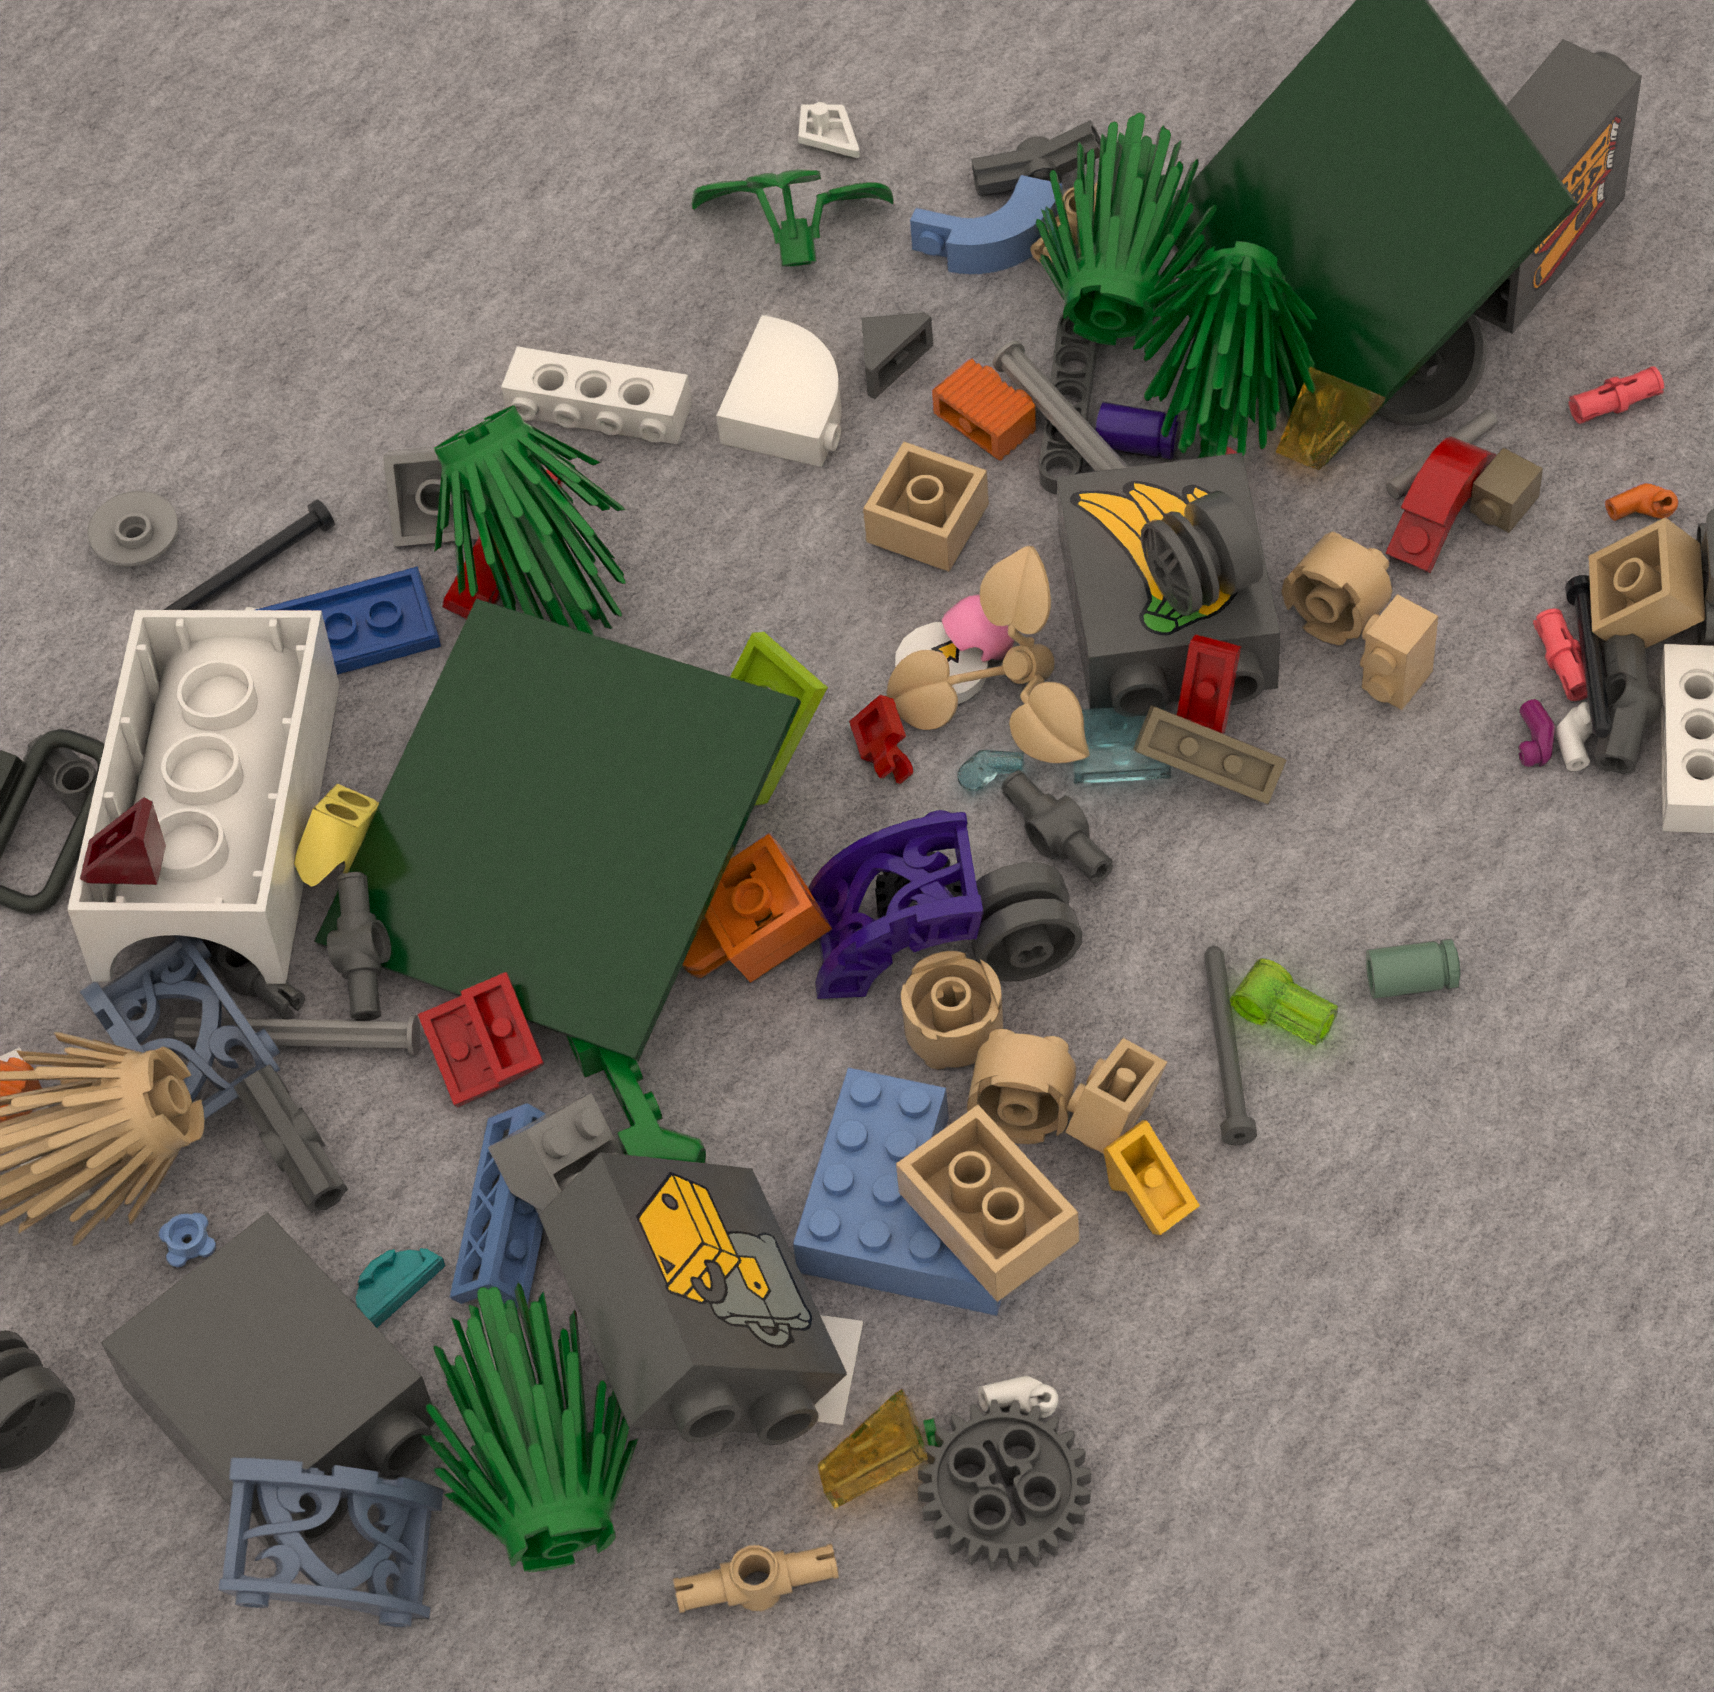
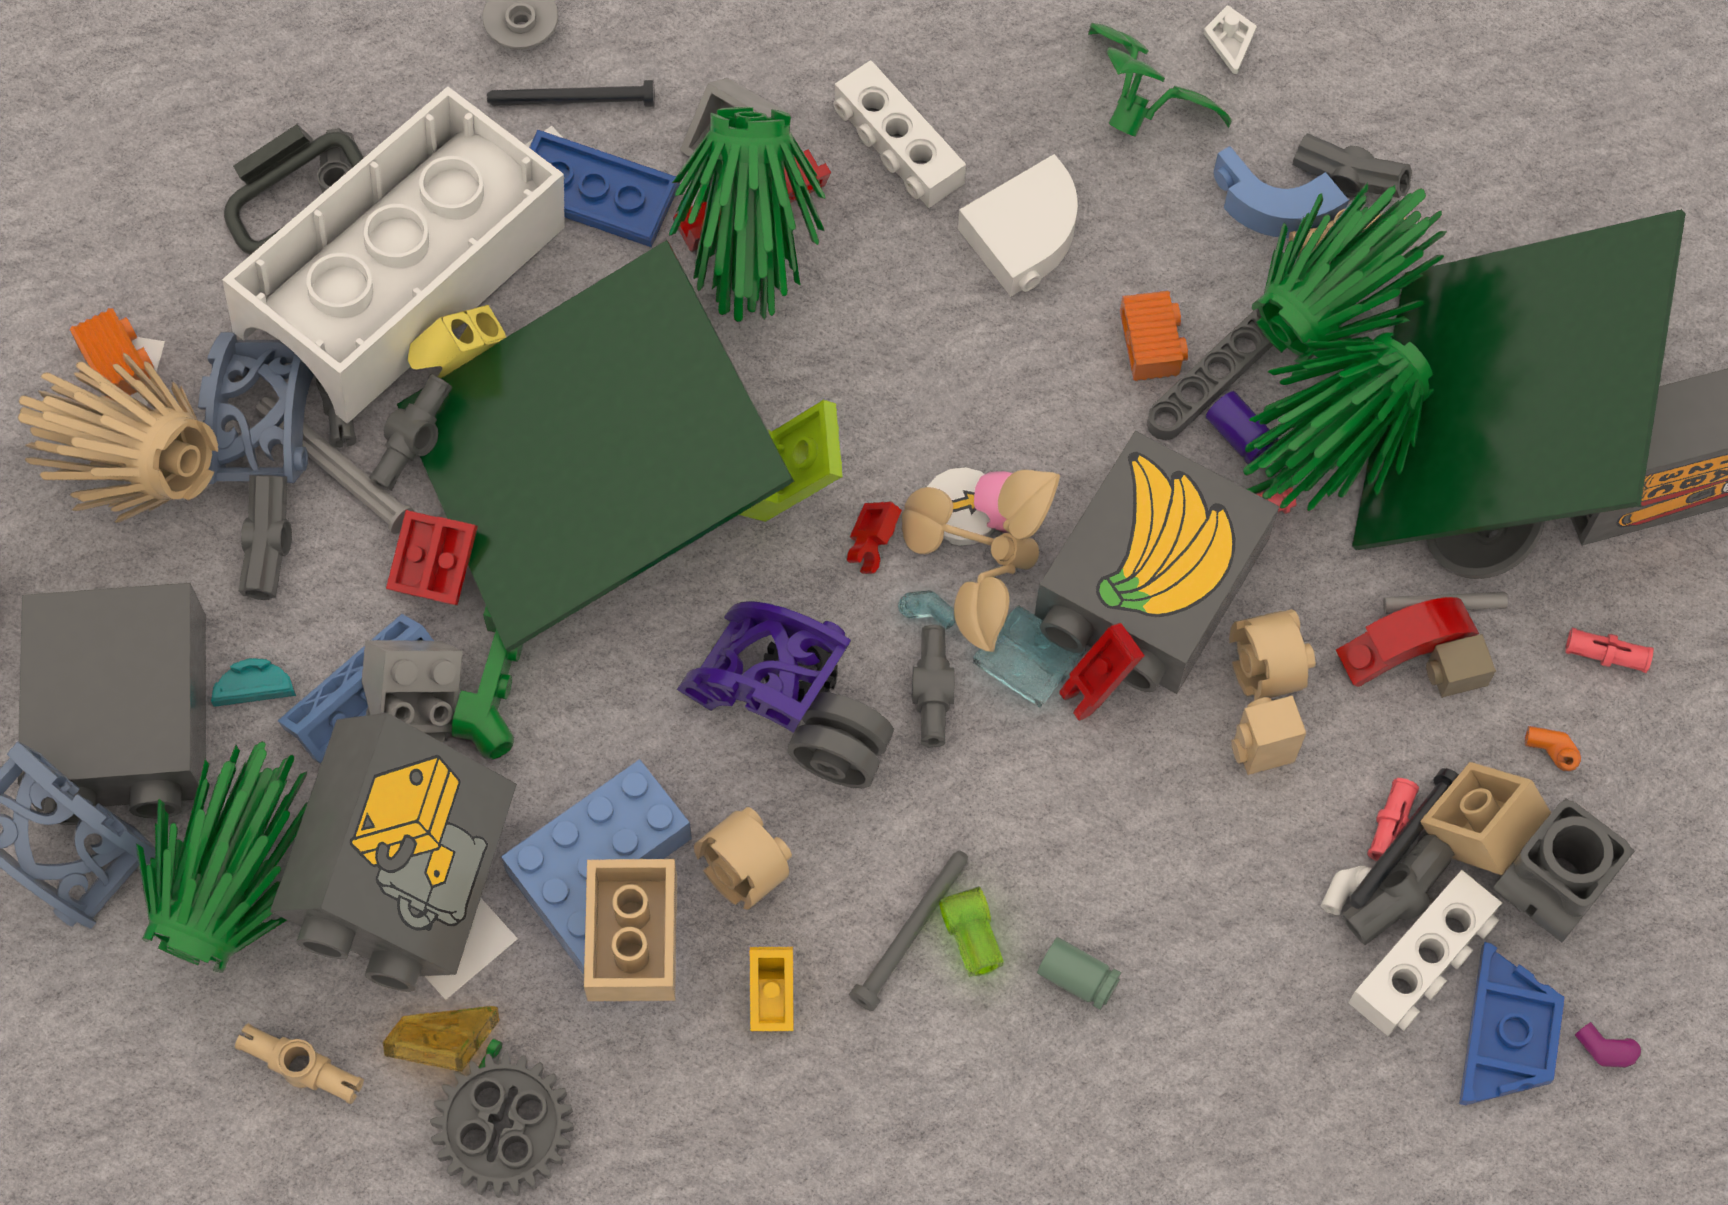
camera: 30 degrees right, 10 degrees up
(127, 849) = (287, 266): dark red slope -> none
(186, 1226) = (146, 547): light blue plate -> none
(752, 887) = (685, 581): orange brick -> none
(893, 346) = (1127, 241): dark grey slope -> none
(926, 506) = (1044, 381): tan brick -> none
(950, 1008) = (733, 750): tan brick -> none
(1025, 1389) = (568, 1069): white arm -> none
(1056, 407) = (1197, 379): light grey axle -> none
(1114, 1095) = (795, 913): tan brick -> none
(1202, 552) = (1168, 567): dark grey wheel -> none
(1209, 754) = (1073, 713): dark tan plate -> none
(1325, 419) = (1374, 519): clear yellow wing -> none
(1542, 734) = (1325, 866): magenta arm -> none

